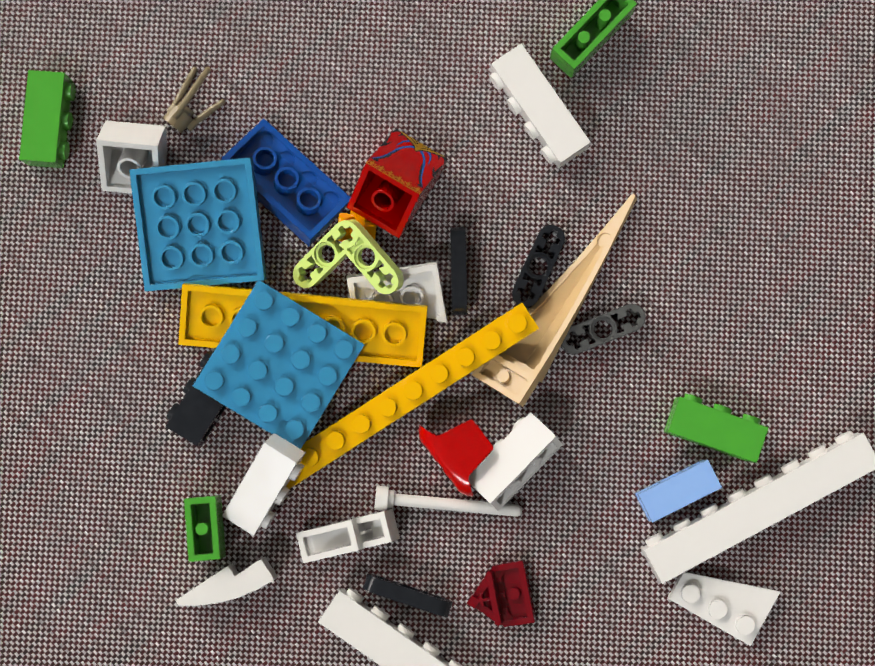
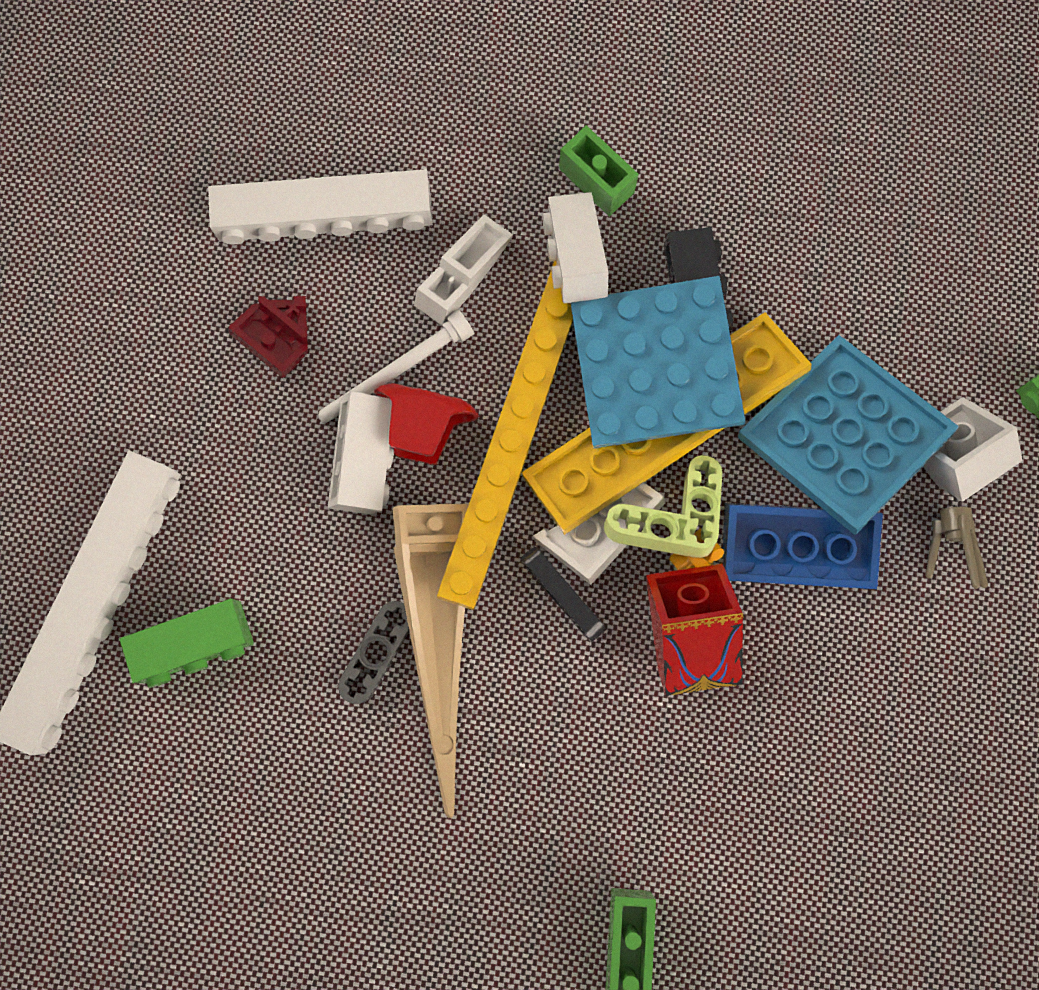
camera: 135 degrees right, 5 degrees down
(229, 584) = (533, 145): white slope -> none
(407, 595) = (365, 260): black beam -> none
(539, 106) = (620, 829): white brick -> none
(540, 243) = (472, 637): black beam -> none
(678, 490) = (181, 553): light blue piece -> none
(725, 604) = (53, 485): white wing -> none

